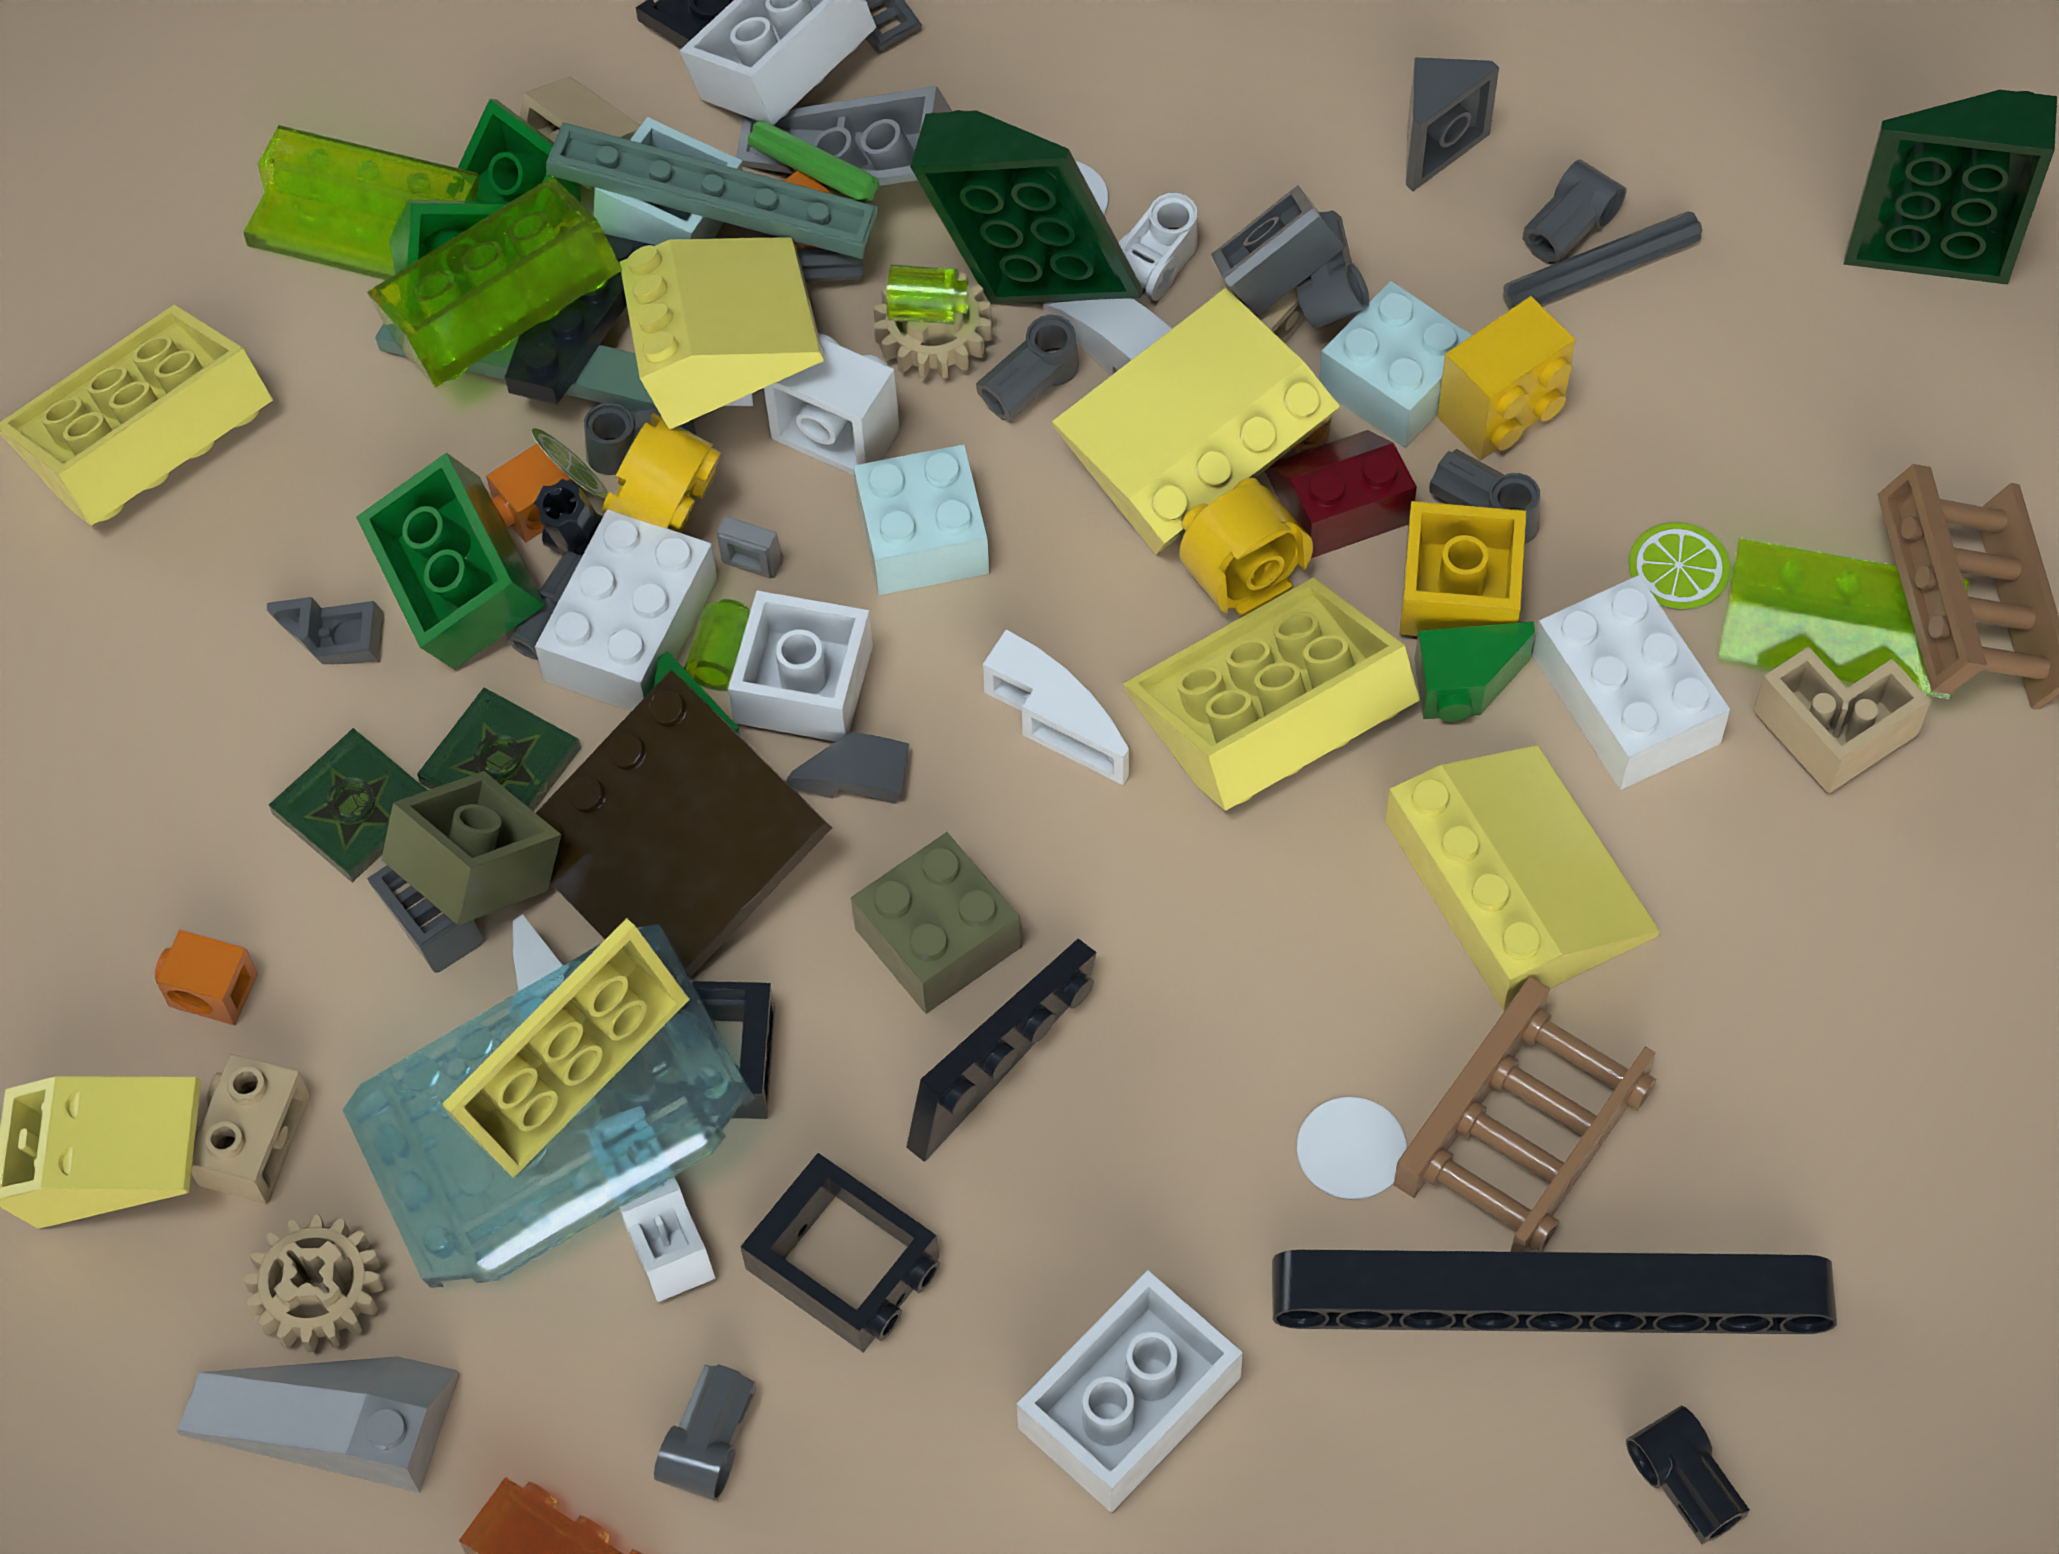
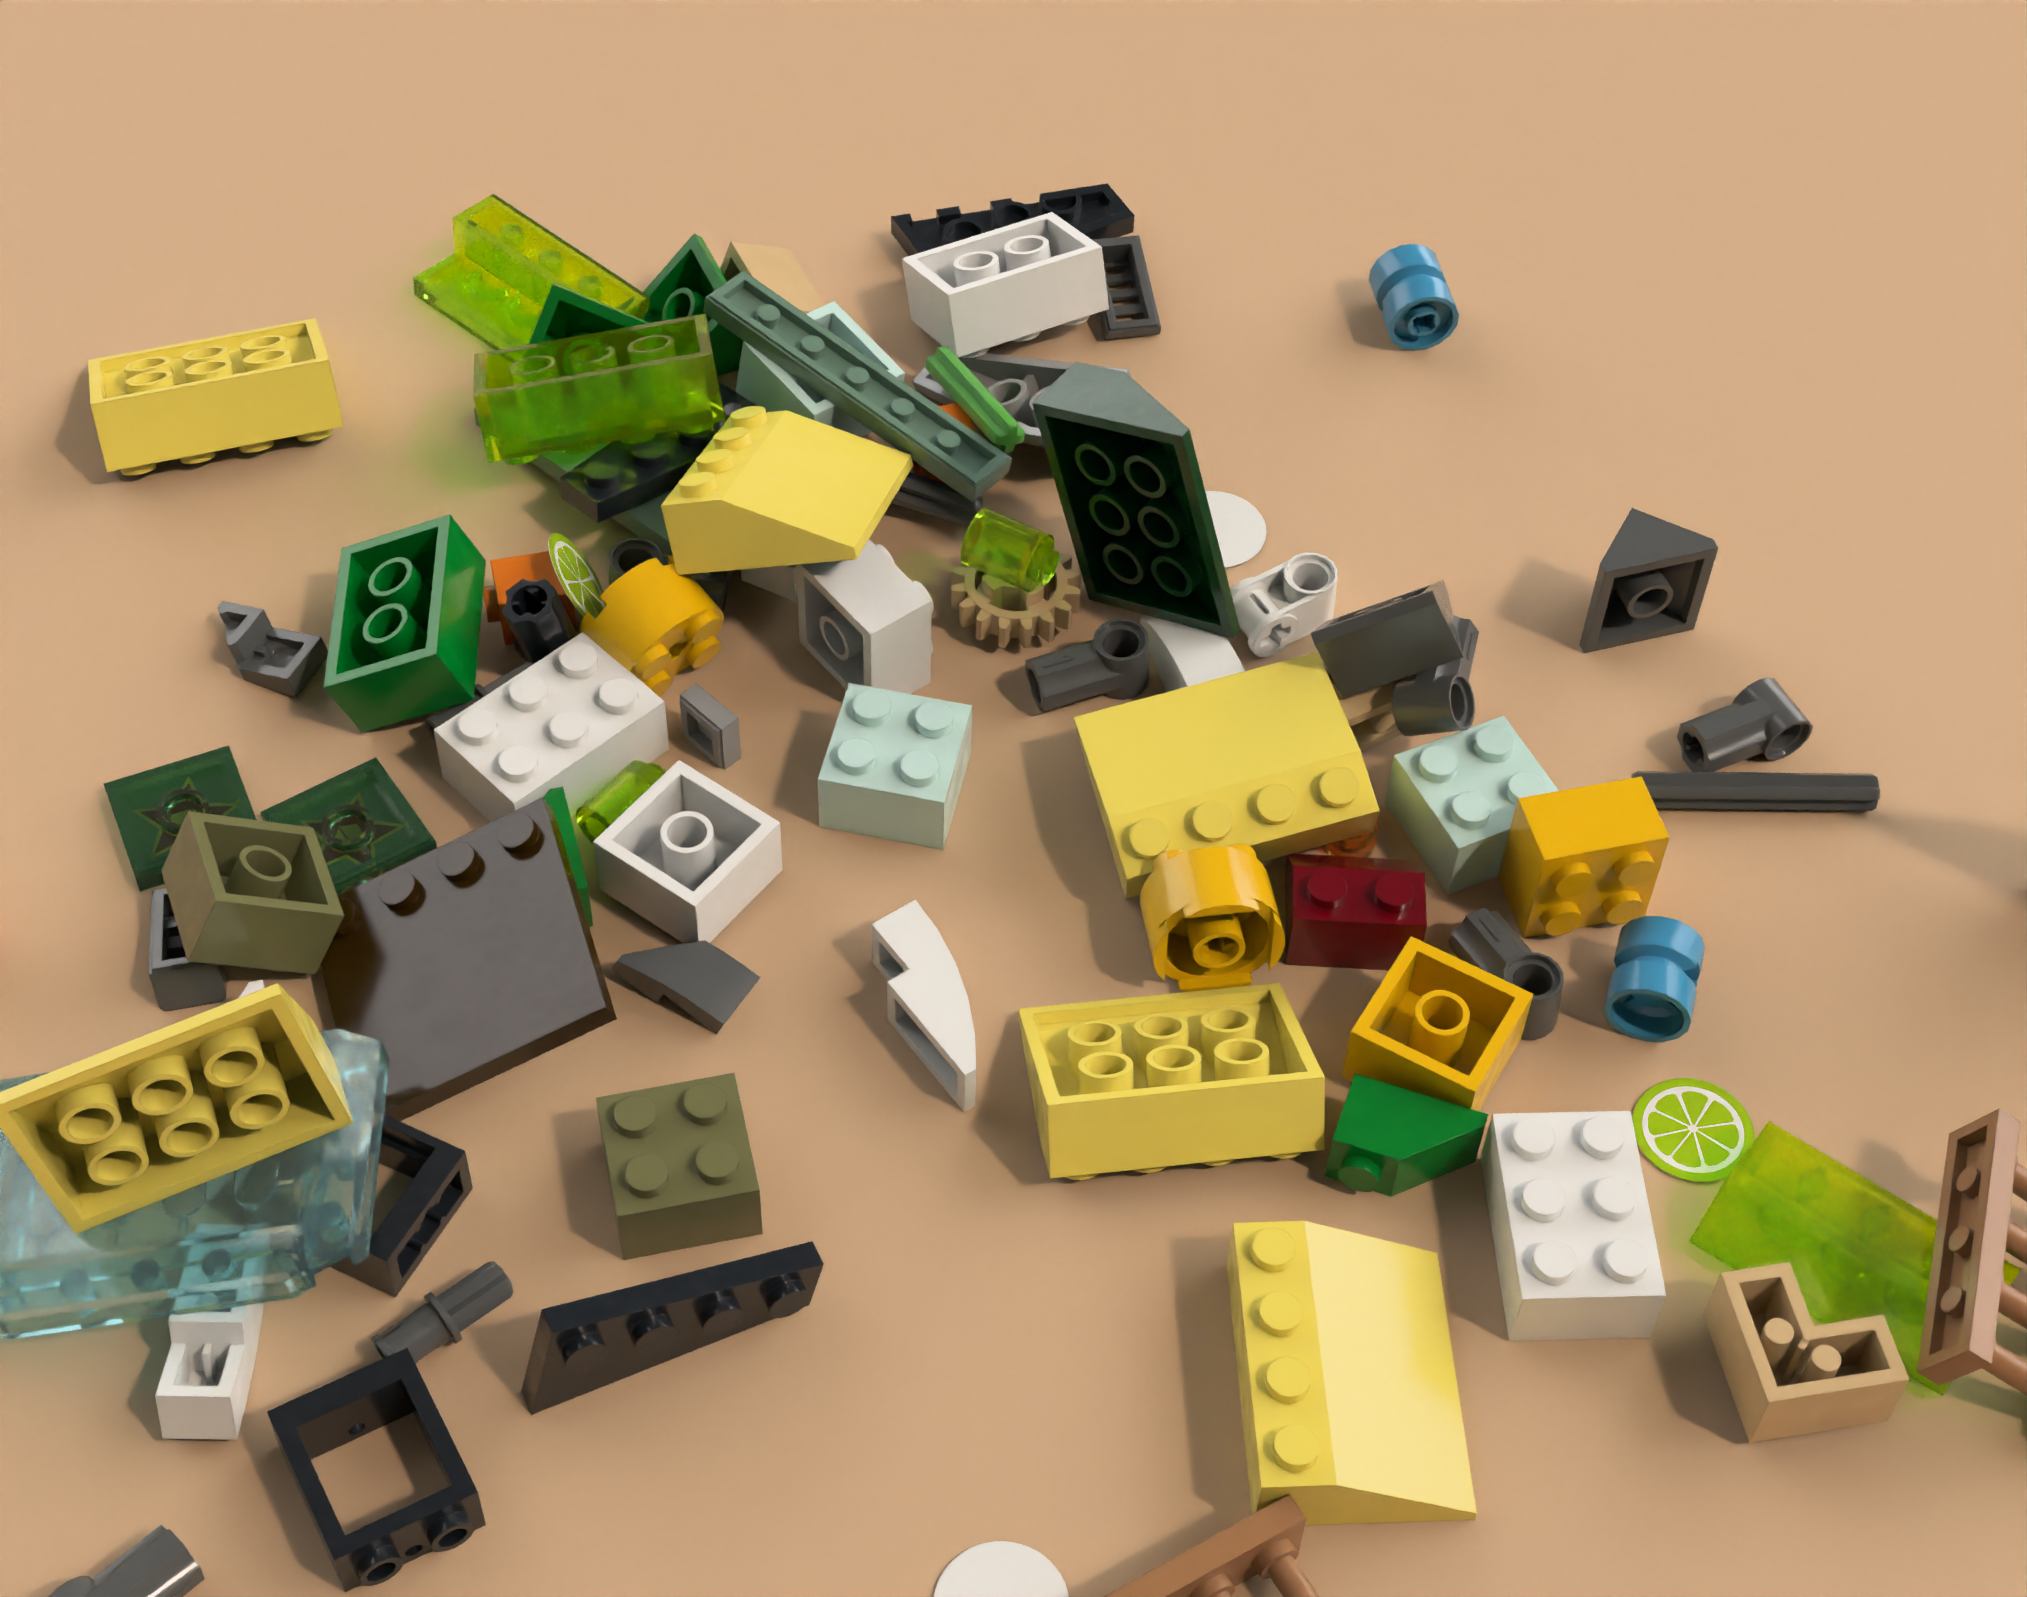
camera: 20 degrees right, 10 degrees down
(819, 1117) = (447, 1314): none -> dark grey axle
(1602, 456) = (1654, 979): none -> dark azure wheel

